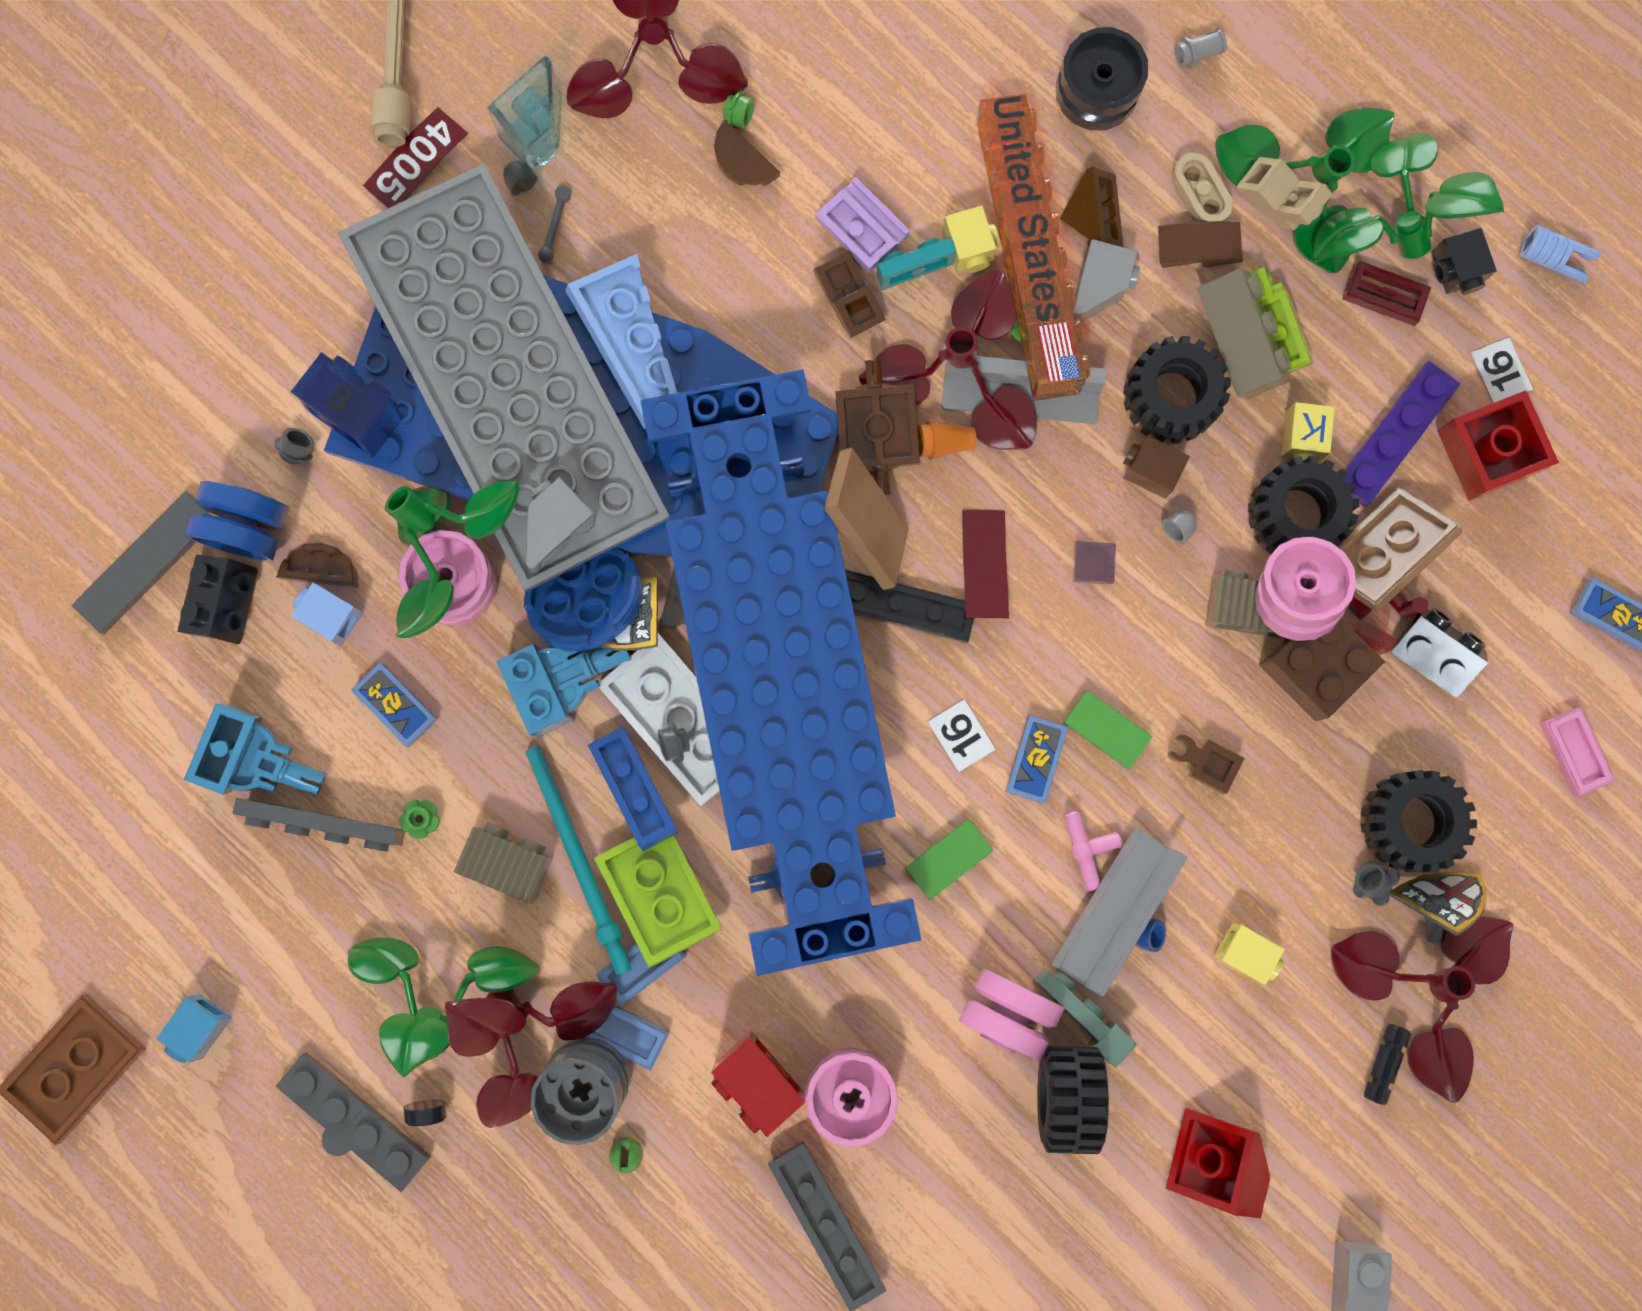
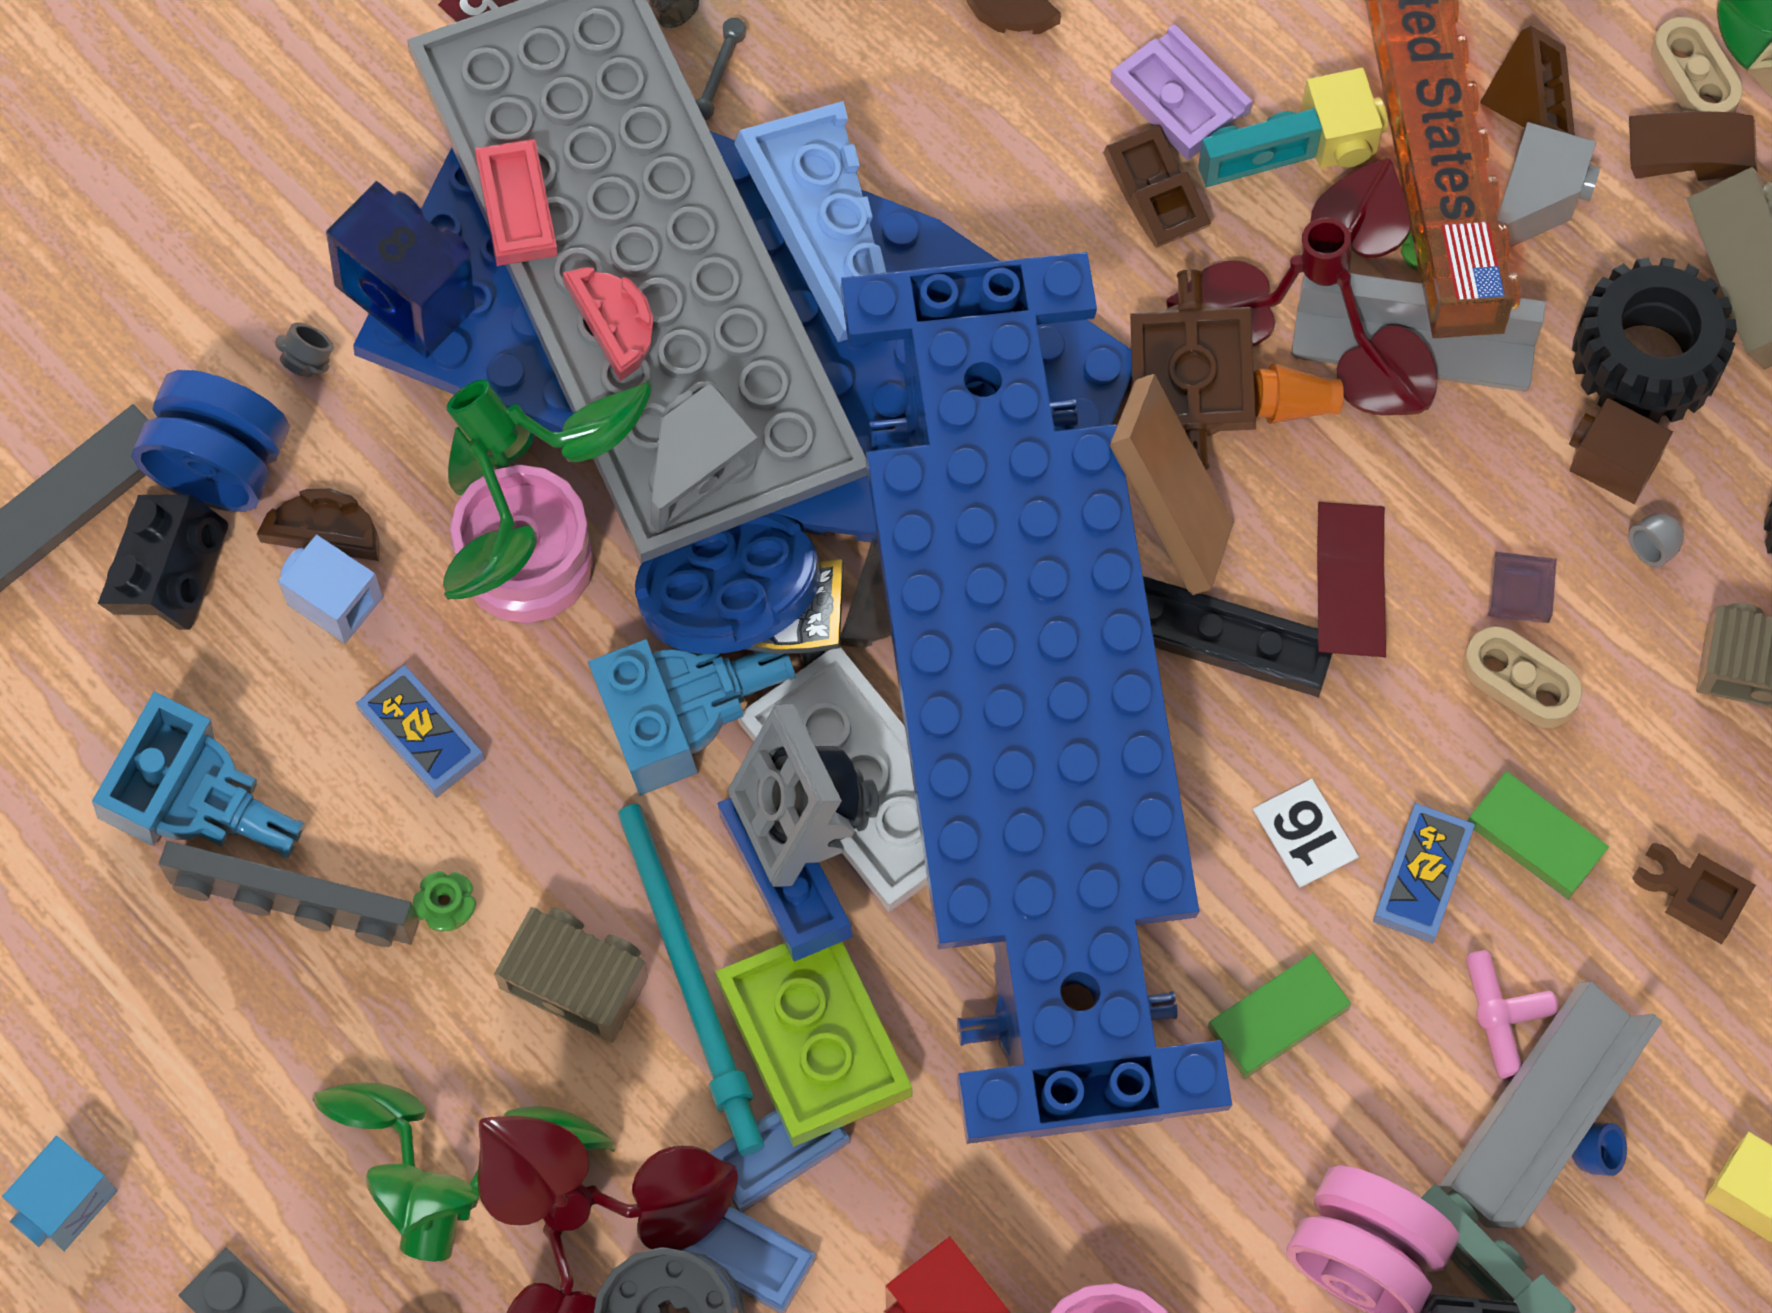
camera: 10 degrees right, 15 degrees down
(420, 348) = (516, 202): none -> coral tile
(494, 425) = (615, 314): none -> coral tile
(635, 749) = (794, 797): none -> light grey piece
(1095, 625) = (1525, 674): none -> tan plate

